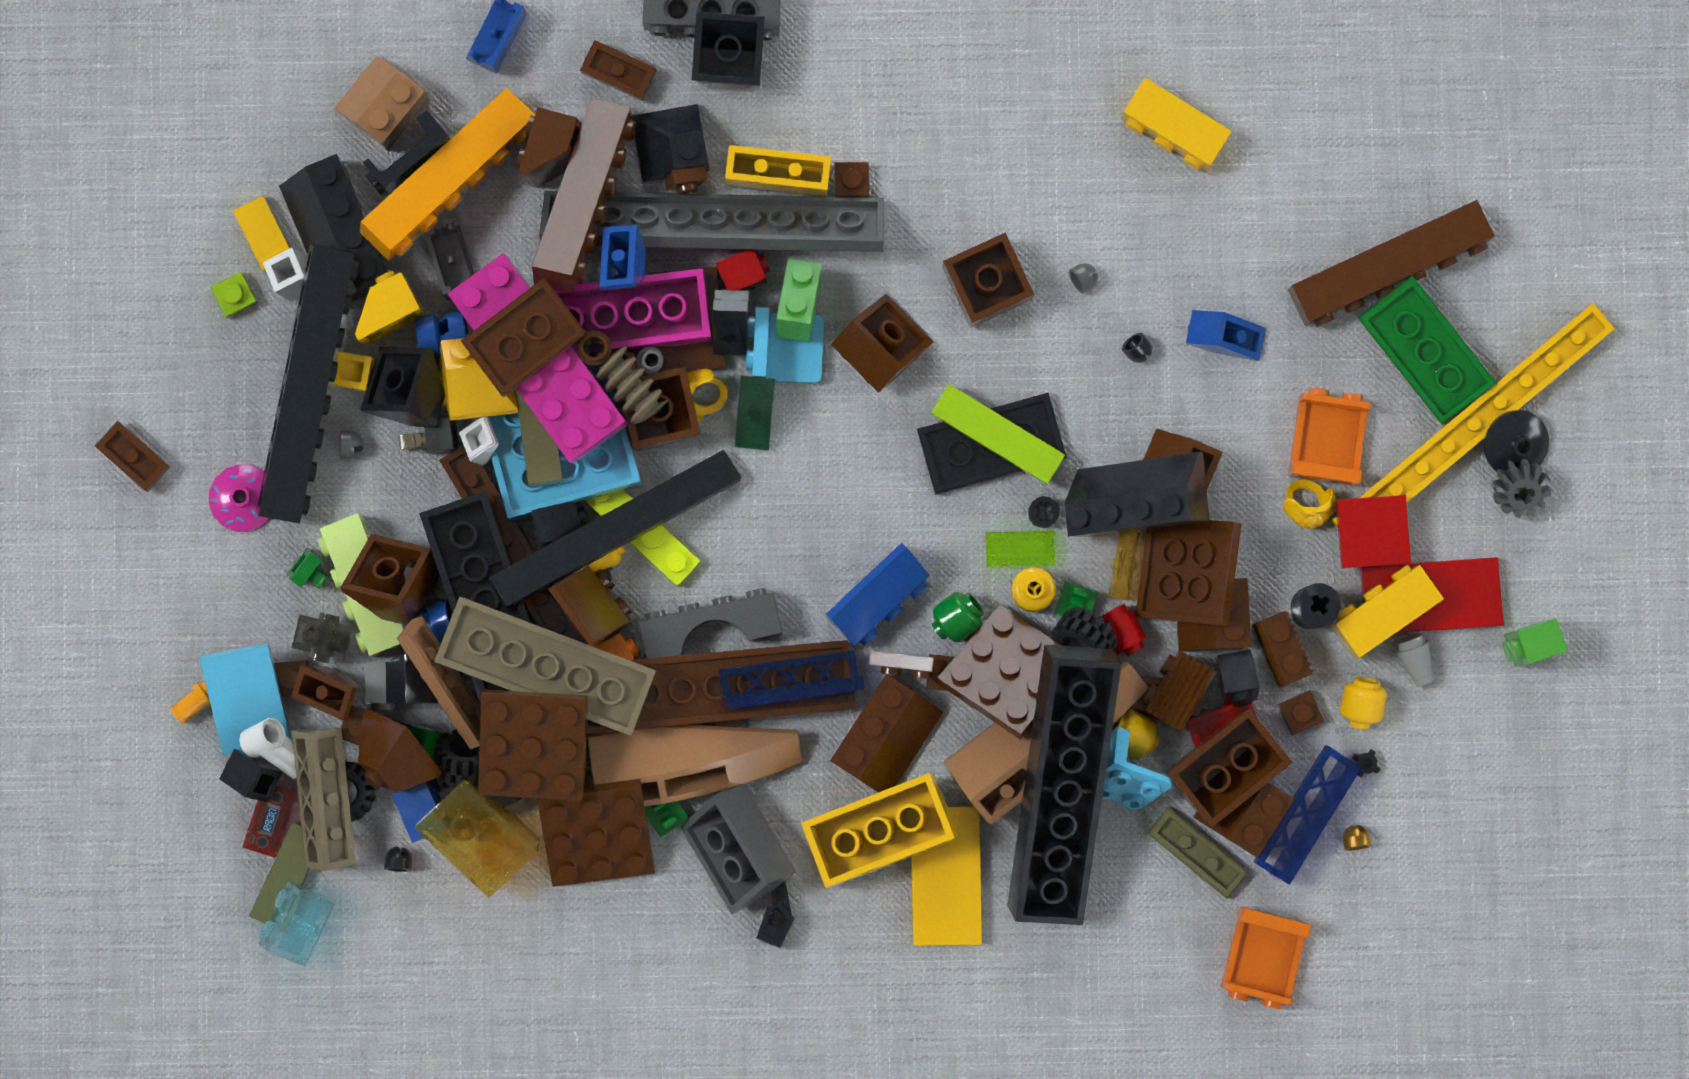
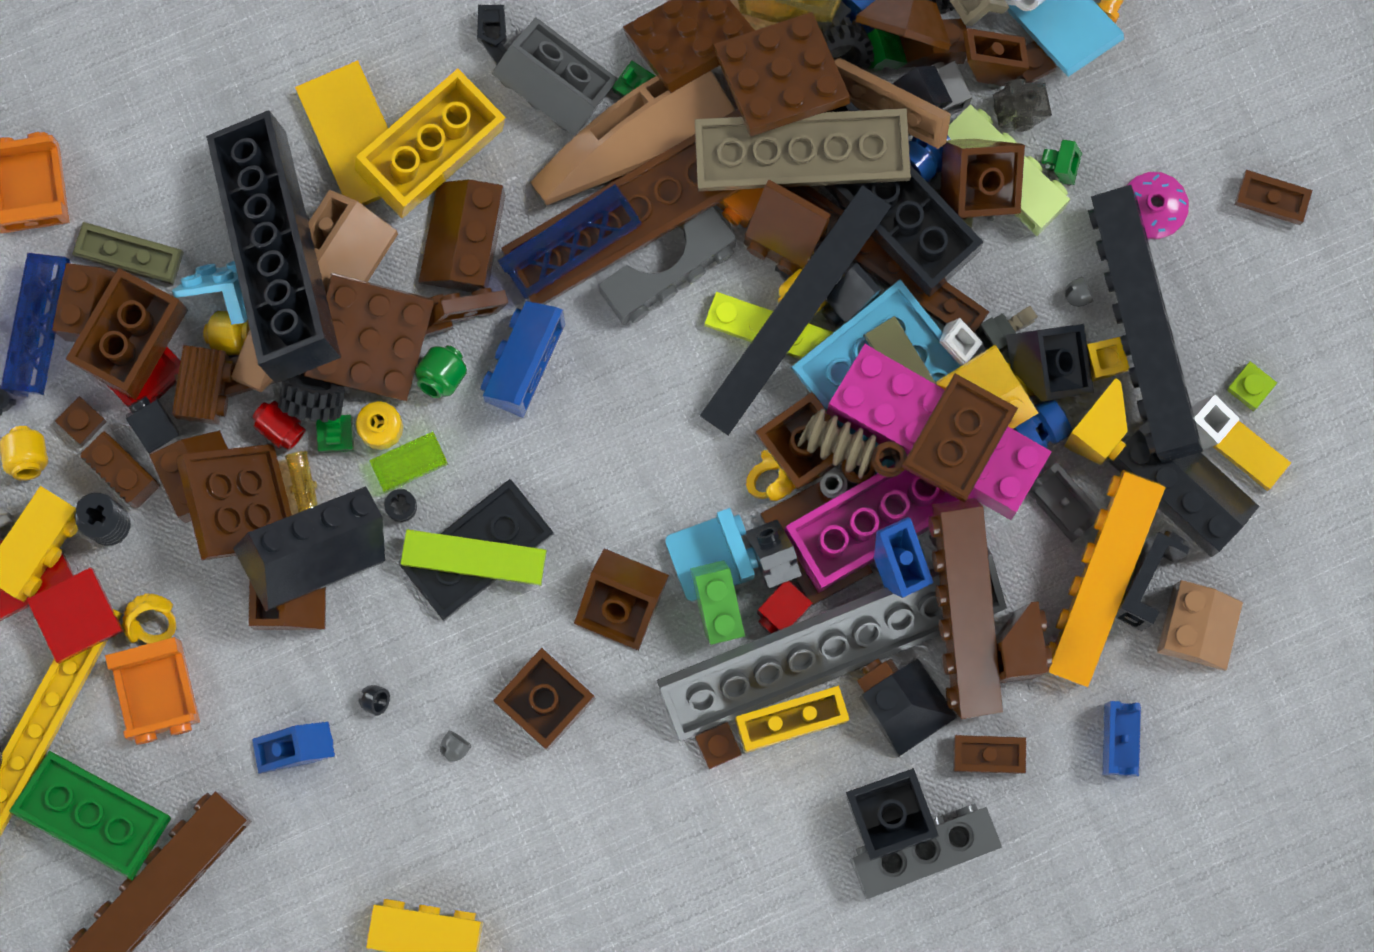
camera: 155 degrees right, 5 degrees down
(755, 413) = (713, 481): clear green slope -> none

